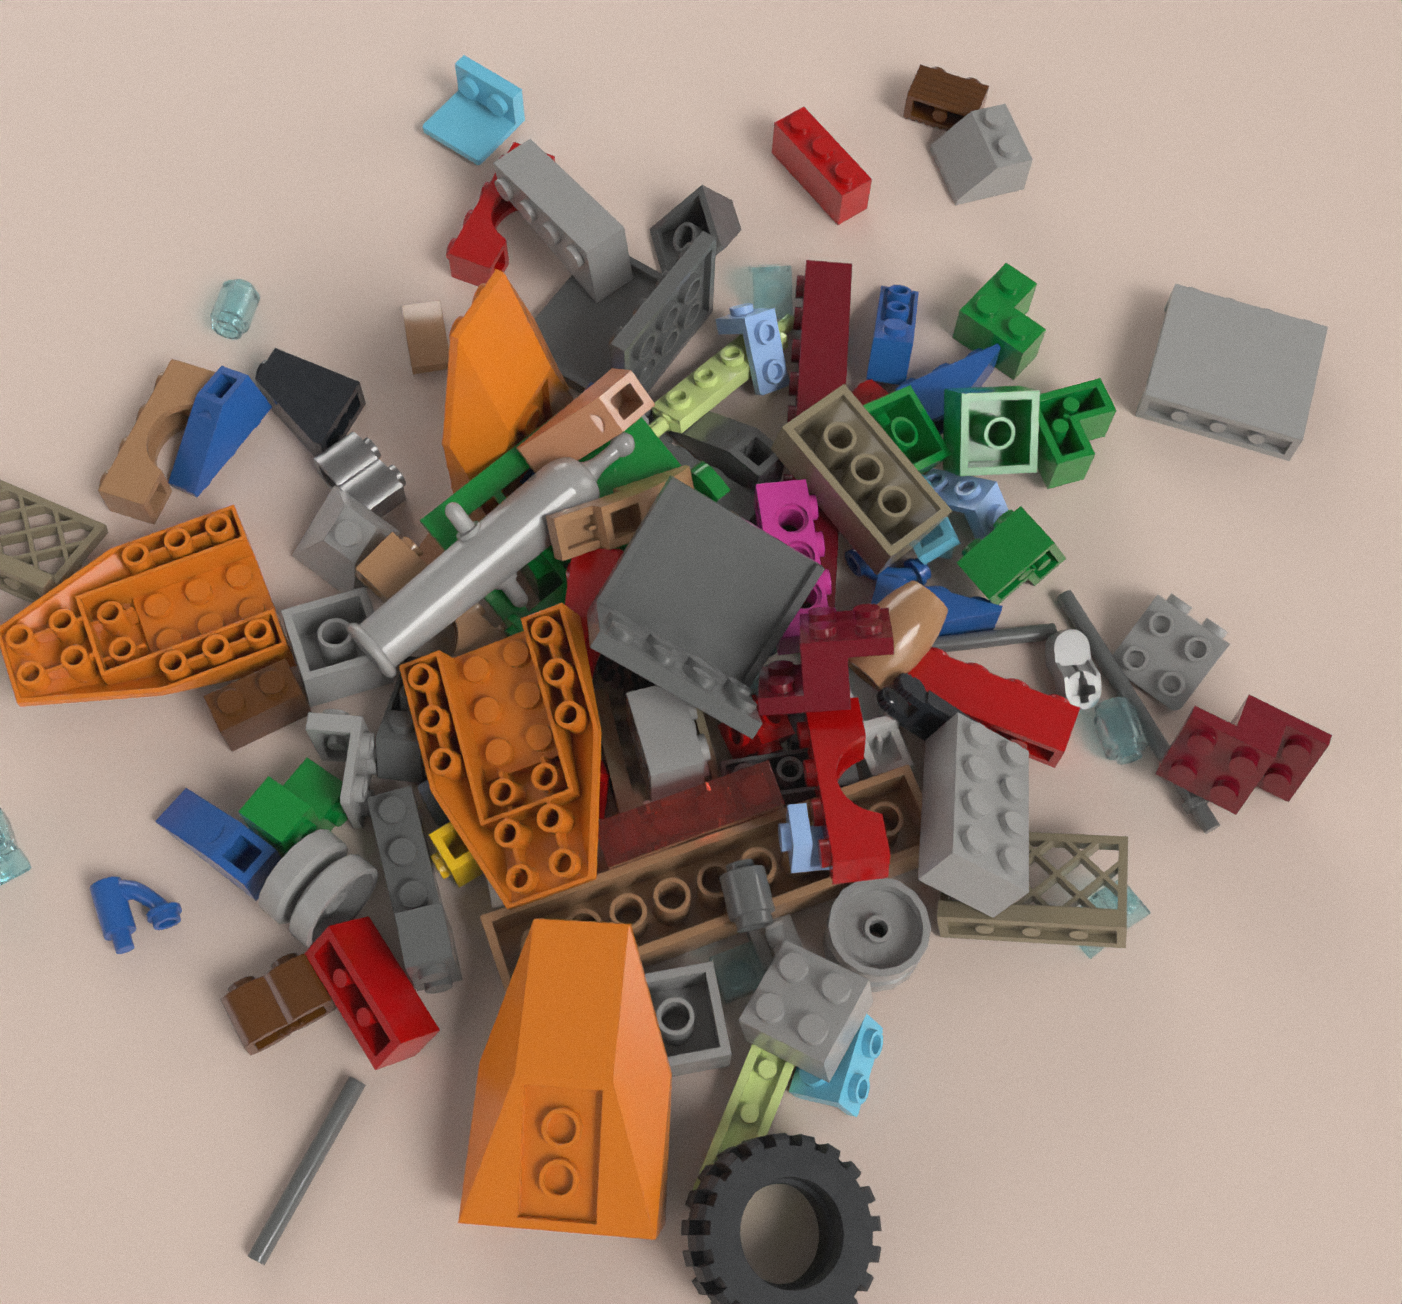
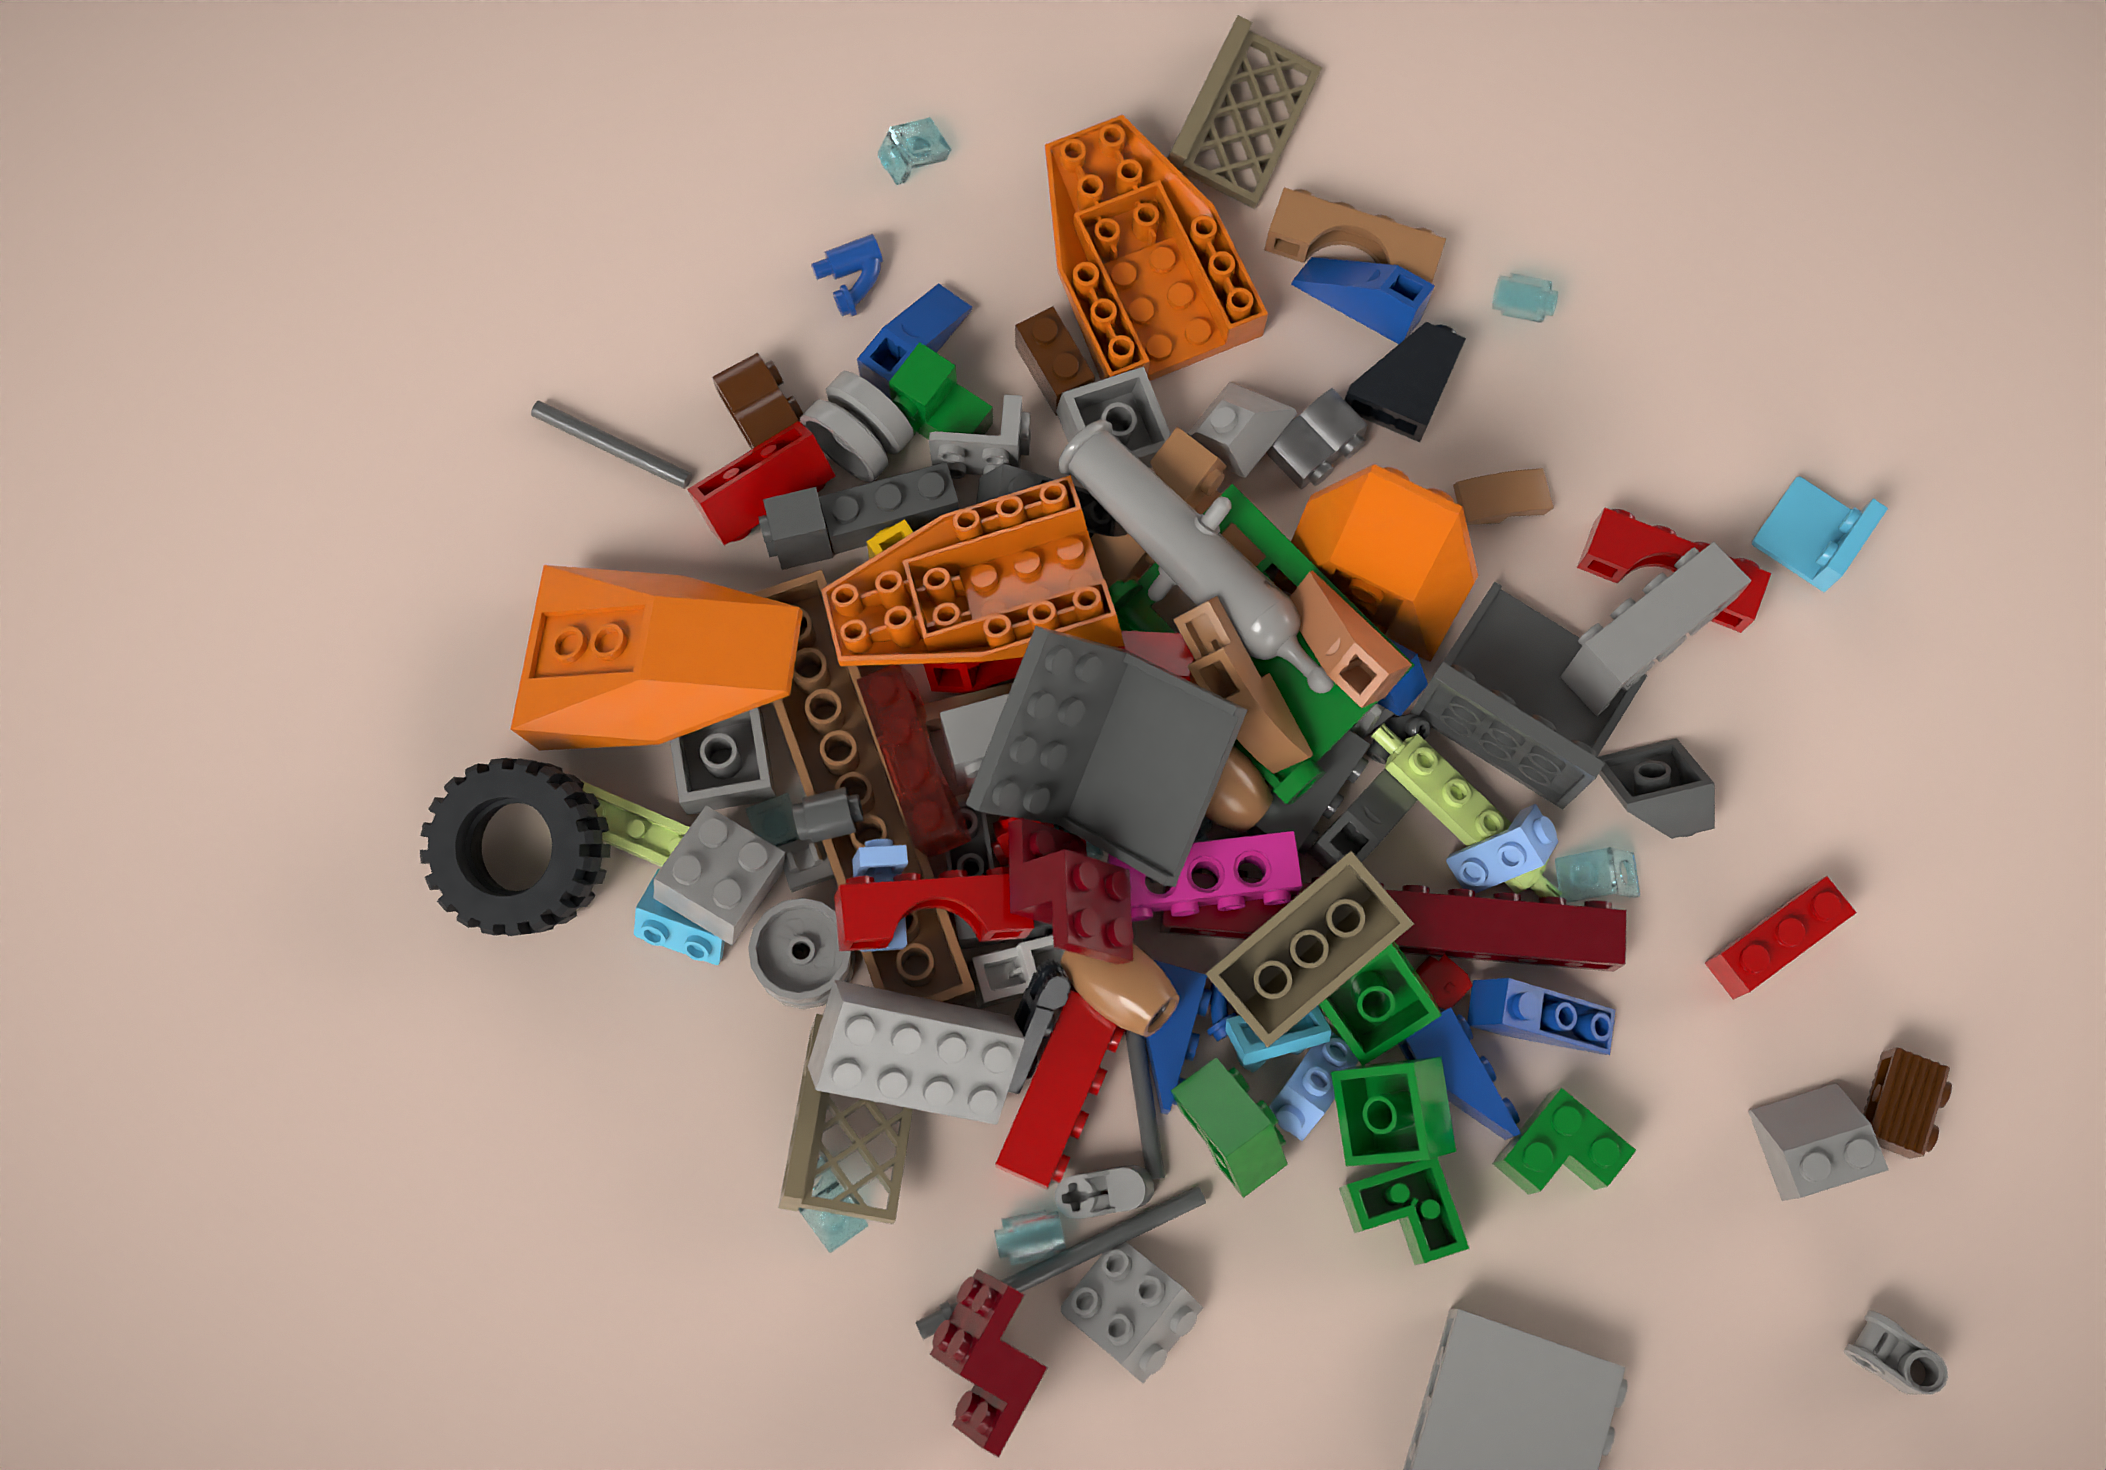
camera: 90 degrees right, 10 degrees up
(1138, 119) = (1889, 1351): none -> light grey piece

